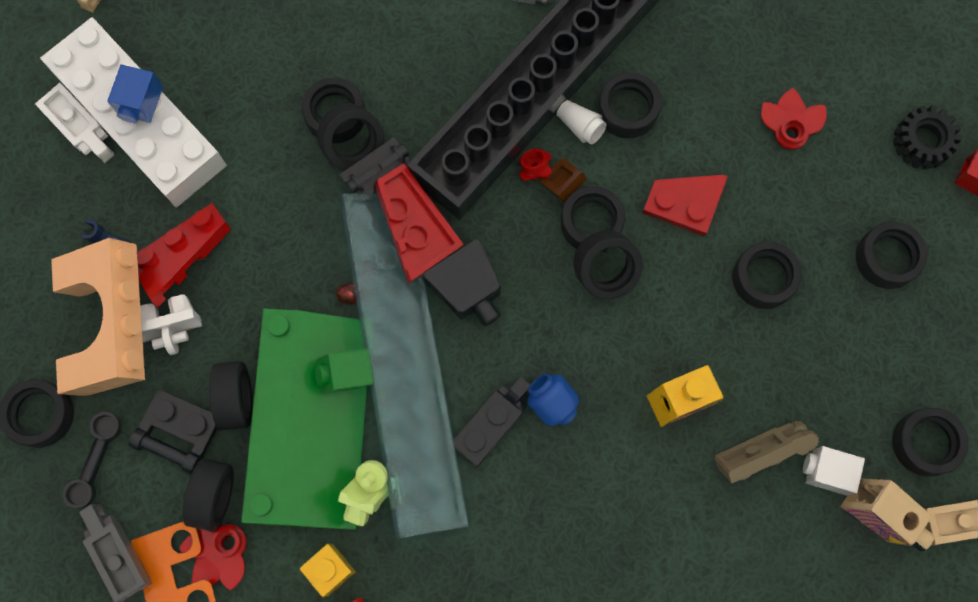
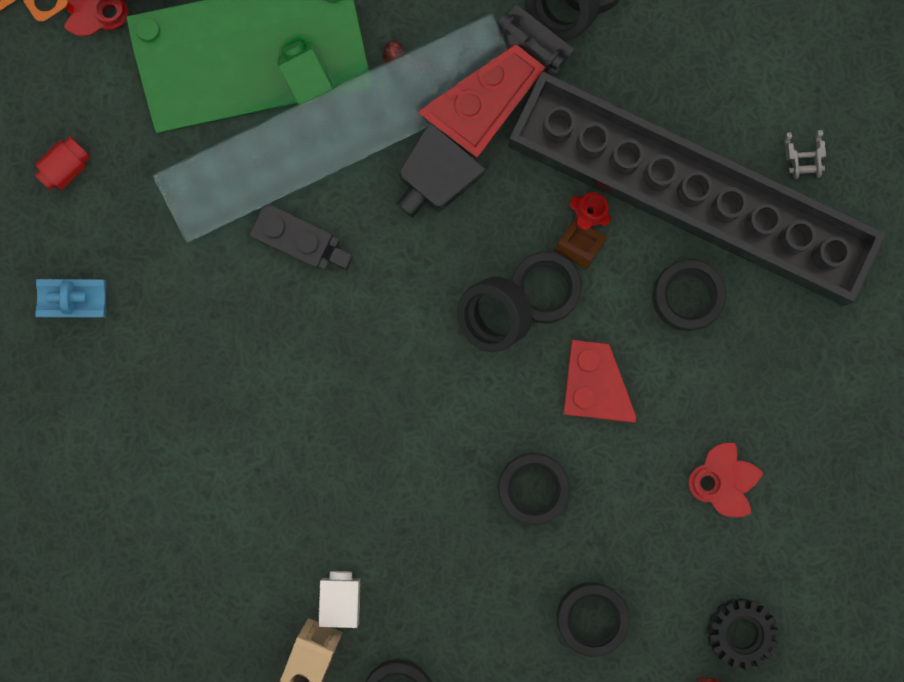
camera: 75 degrees right, 10 degrees up
(327, 570) = (106, 116): yellow brick -> none
(365, 492) = (187, 128): yellowish green hips -> none
(553, 399) = (336, 294): blue head -> none
(582, 122) = (655, 248): white cone -> none
(685, 395) = (377, 432): yellow torso -> none
(766, 450) = (342, 527): dark tan hinge -> none

